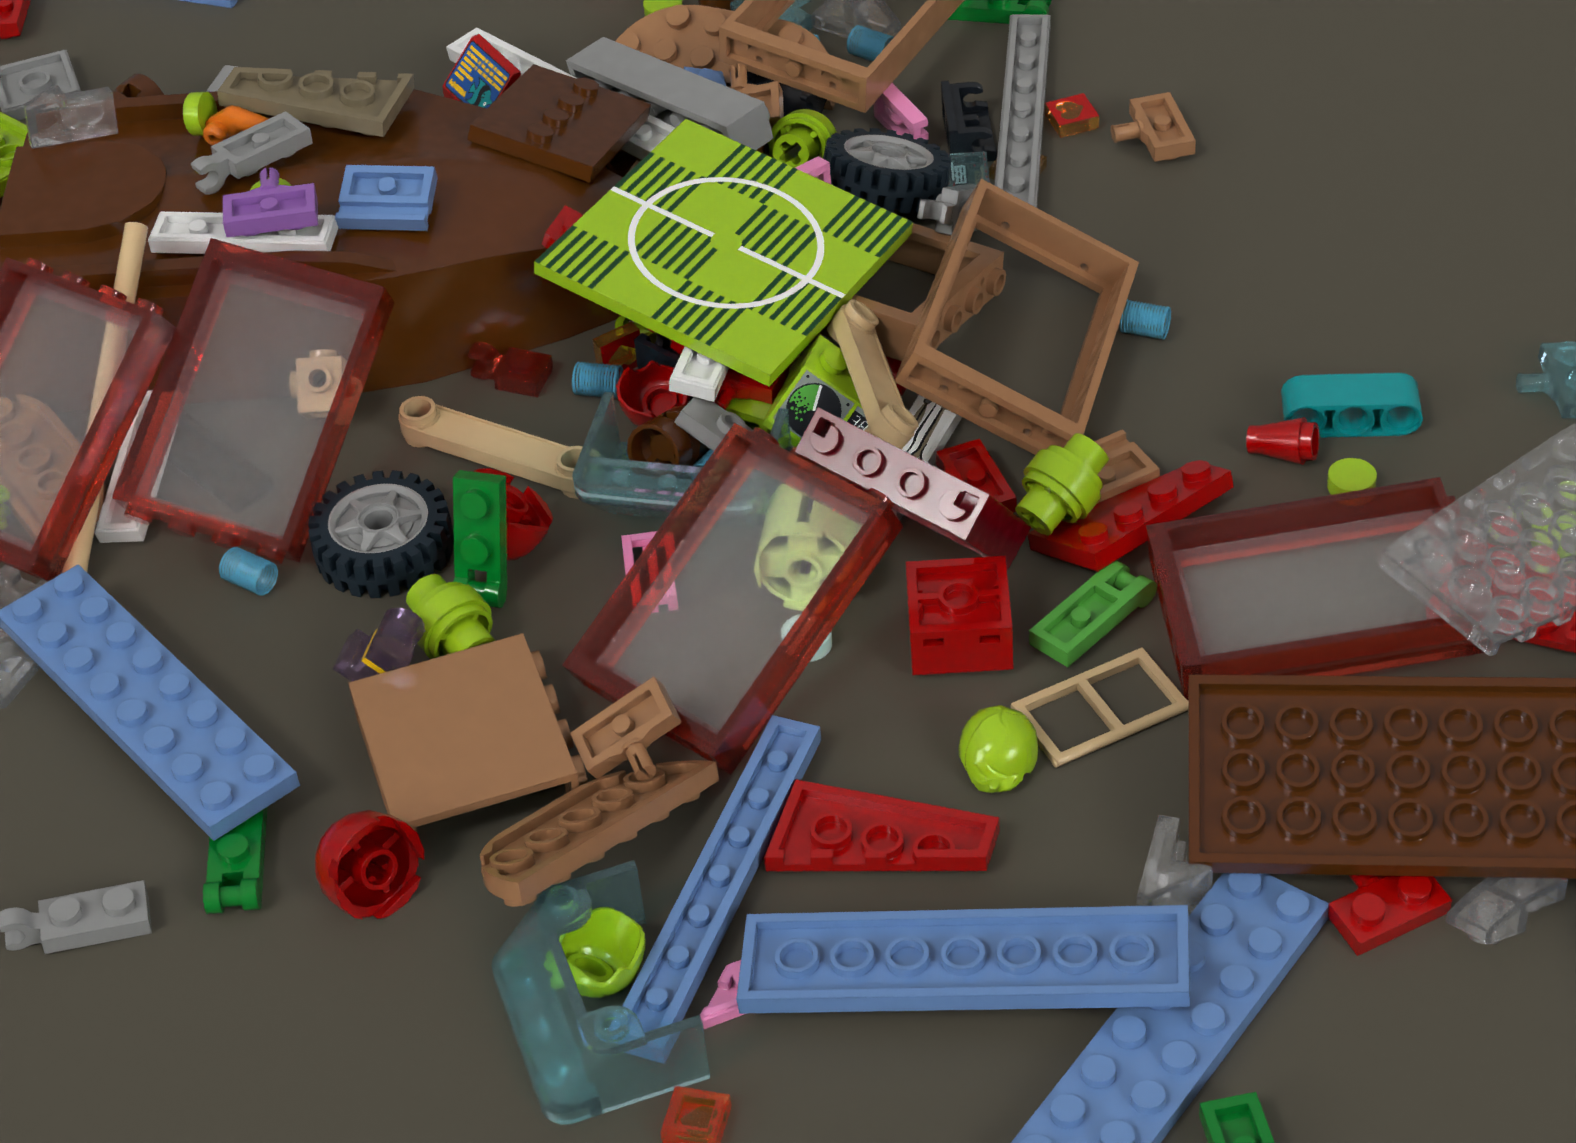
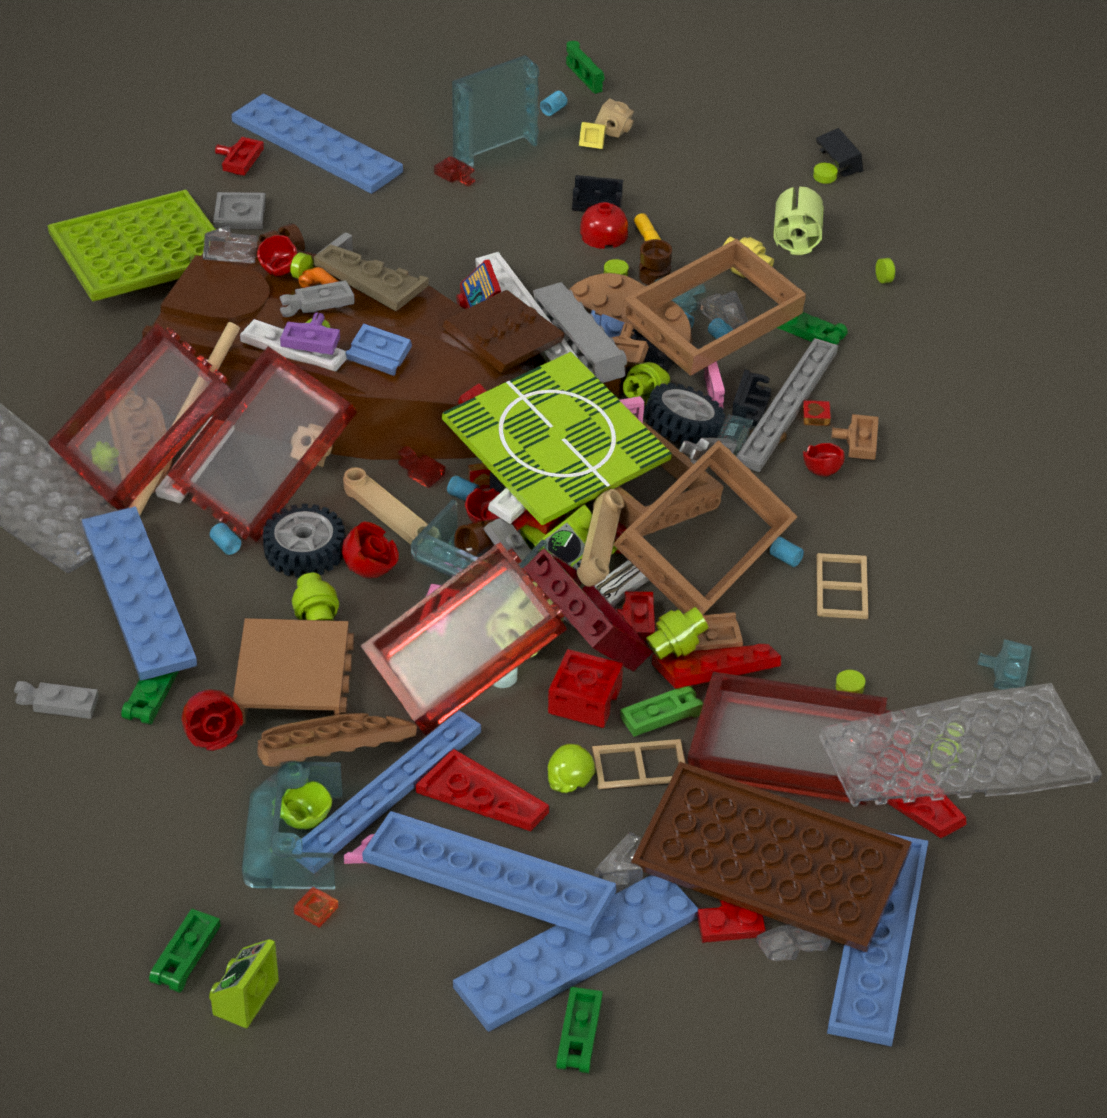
camera: 15 degrees right, 0 degrees up
(153, 107) = (276, 255): none -> red hair
(384, 649) = (271, 606): leg -> none
(481, 533) = (349, 560): green plate -> none
(627, 730) = (374, 692): medium nougat plate -> none
(1124, 173) = (824, 459): none -> red hair
(1222, 352) = (842, 586): none -> tan window
(1285, 440) = (825, 648): red cone -> none
(1355, 403) = (873, 640): teal beam -> none

